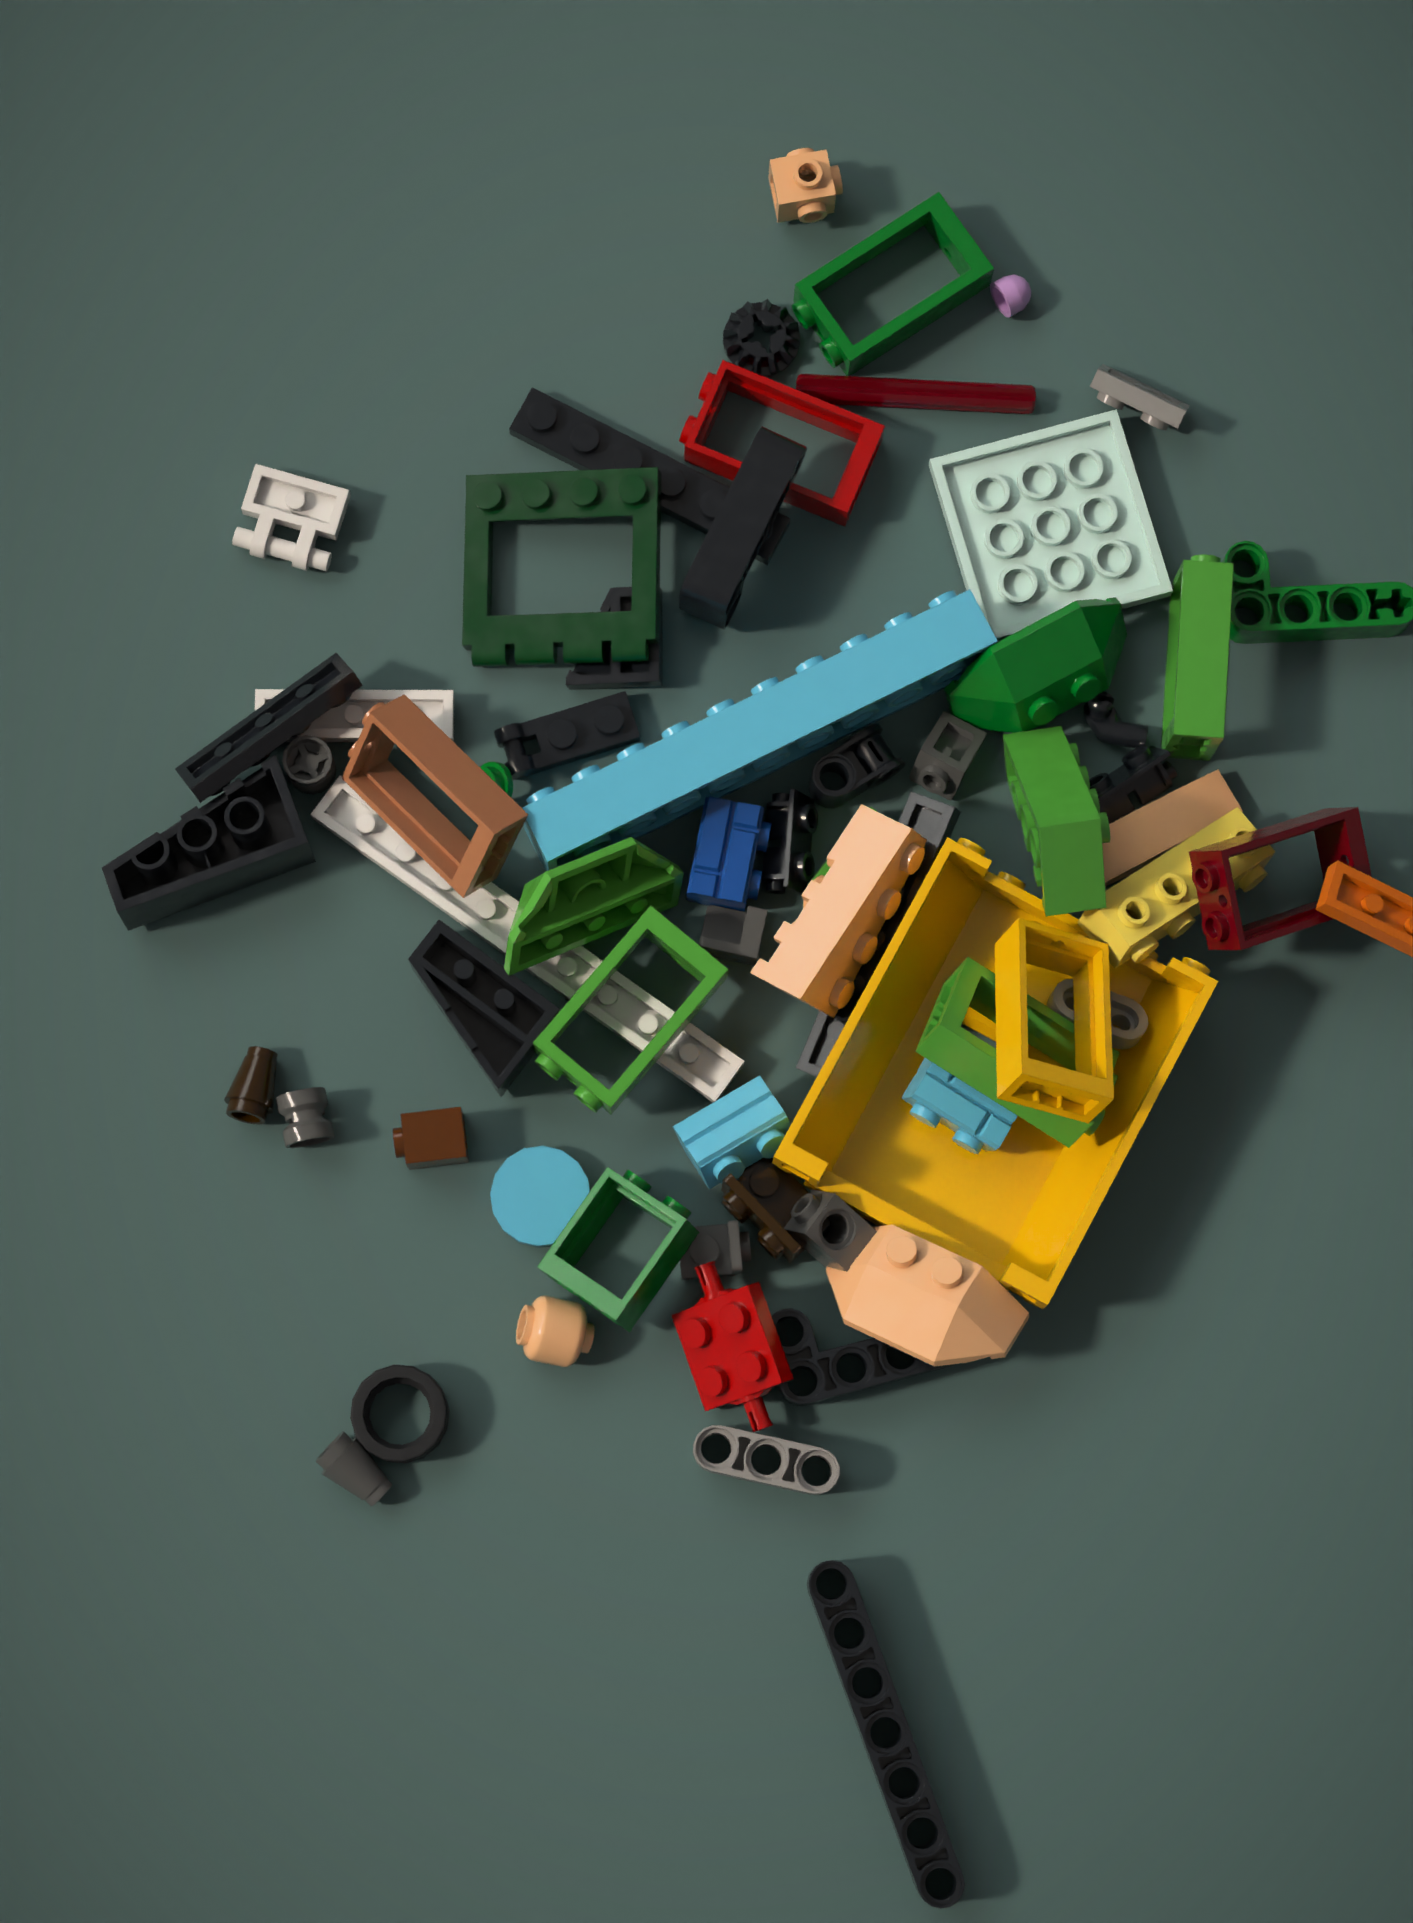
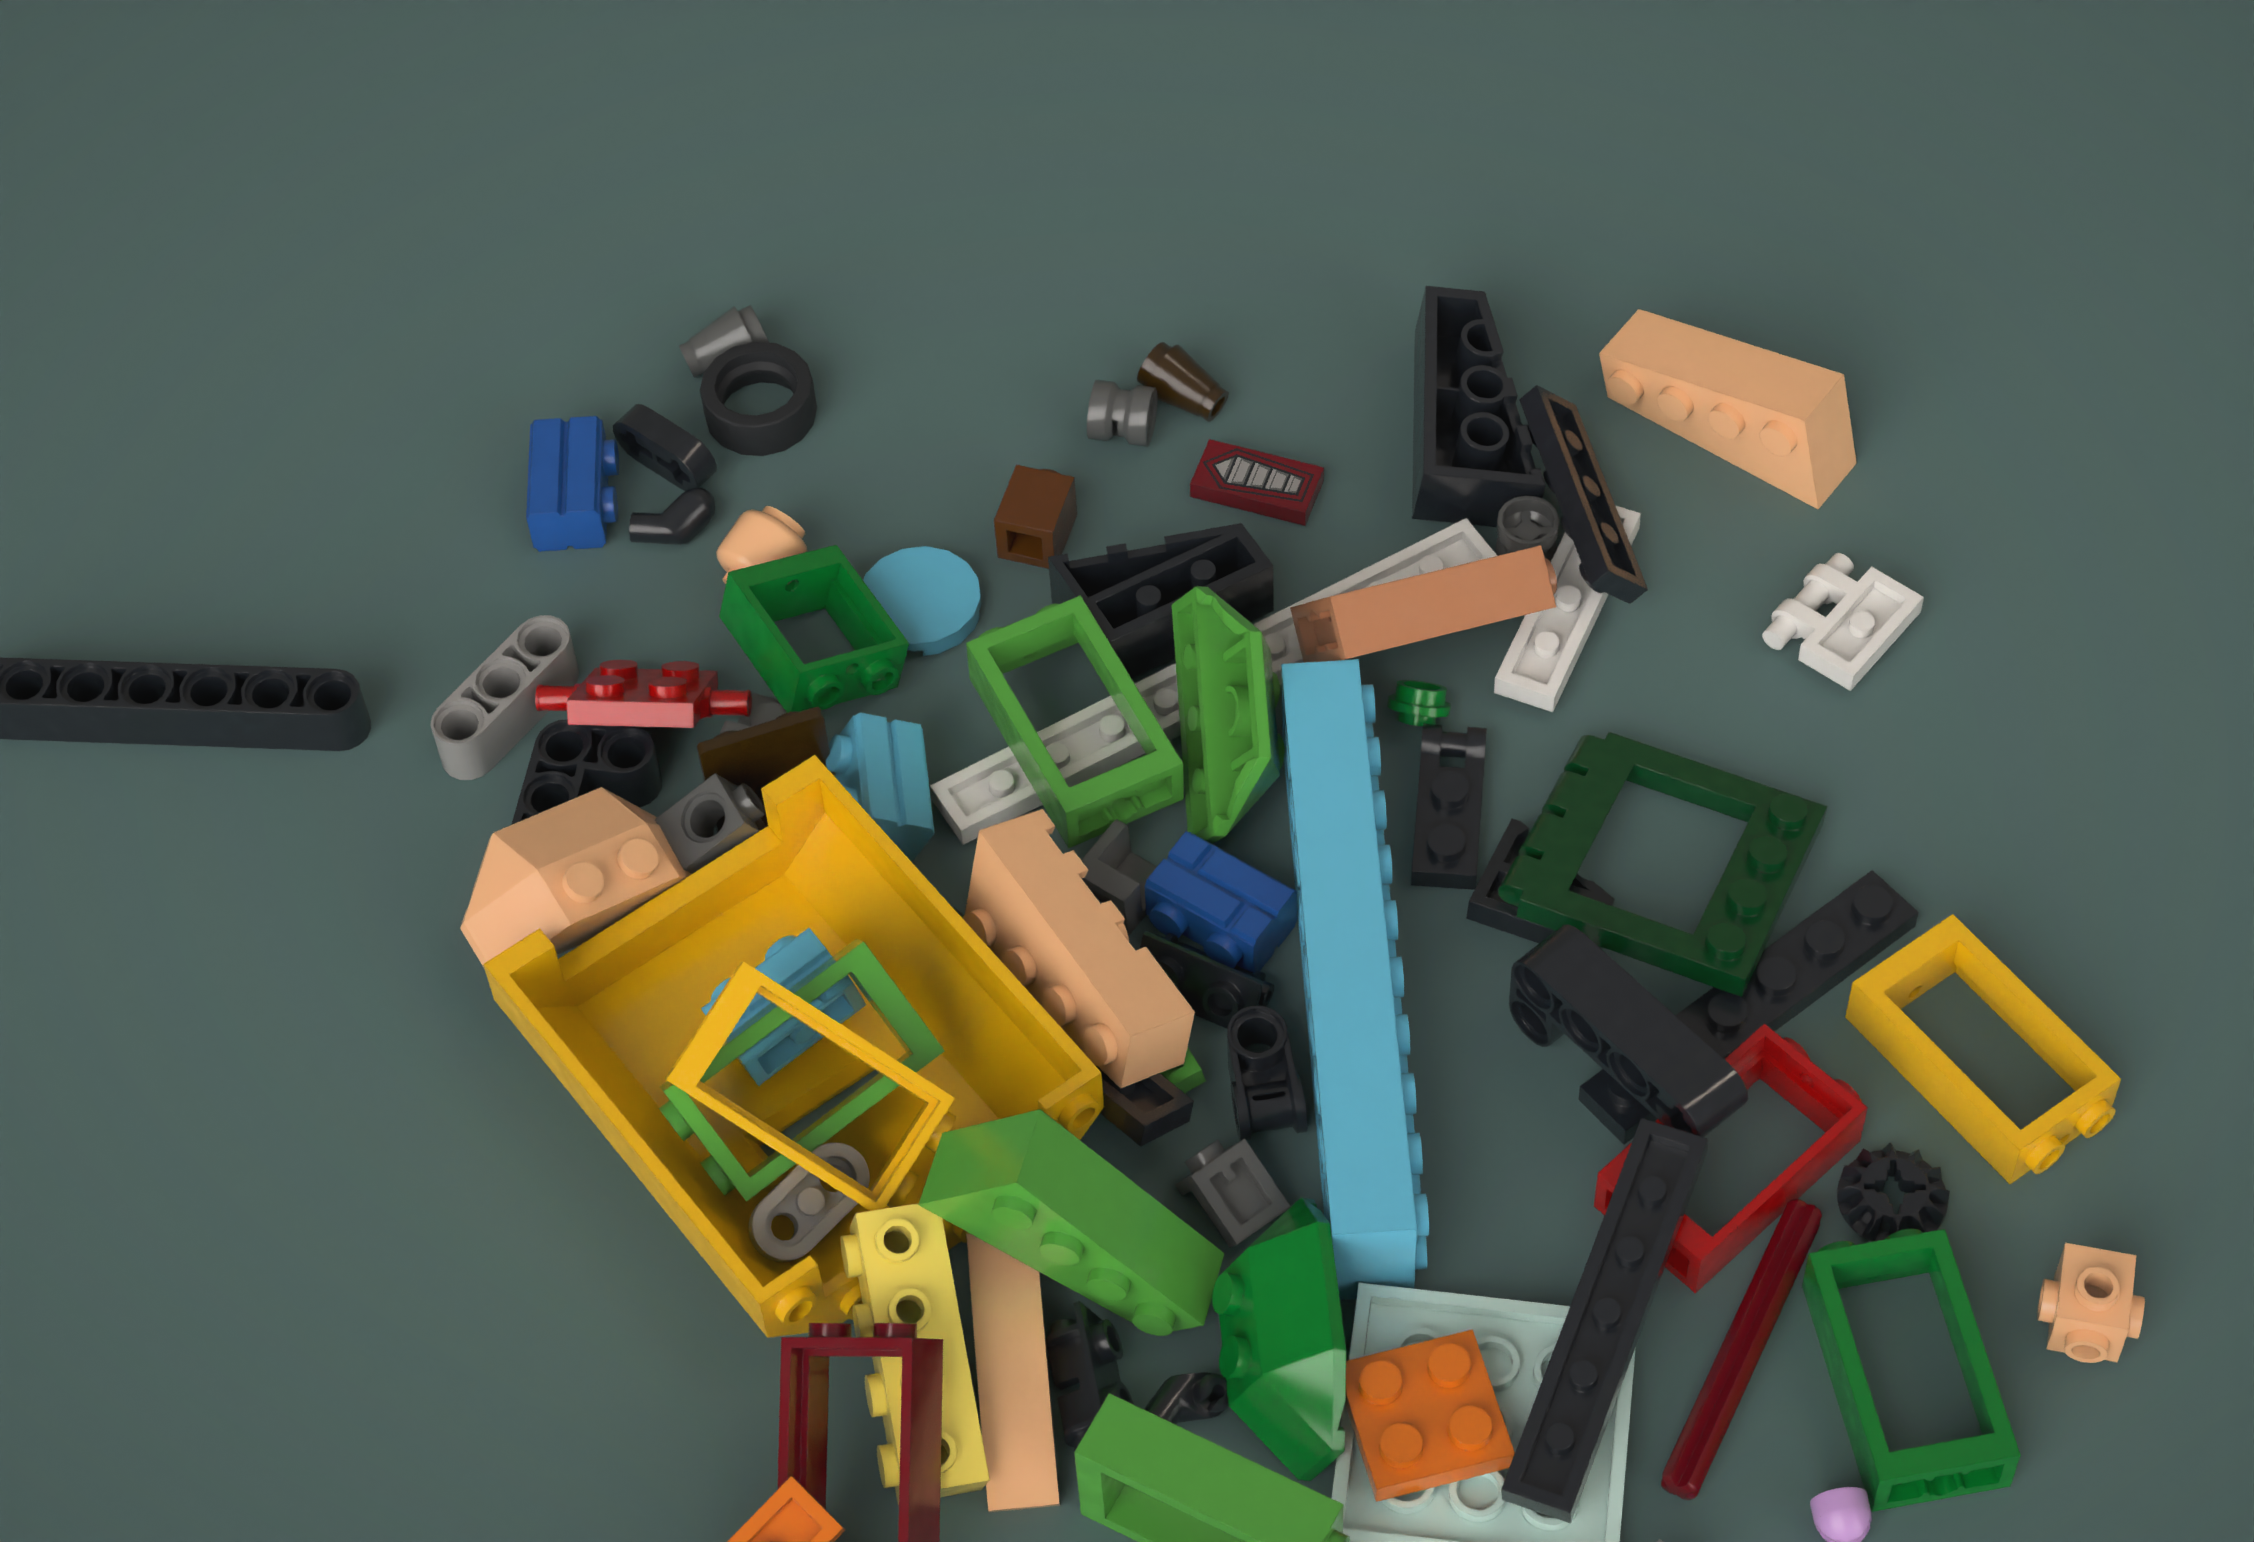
camera: 120 degrees right, 25 degrees down
(119, 663) = (1736, 401): none -> light nougat wedge
(324, 992) = (1257, 482): none -> dark red tile
(480, 1462) = (664, 447): none -> black beam
(541, 1416) = (677, 523): none -> black arm
(546, 1518) = (569, 483): none -> blue brick
(594, 377) = (1922, 964): none -> yellow window
(958, 464) = (1604, 1321): none -> black plate
(1066, 556) = (1426, 1416): none -> orange plate

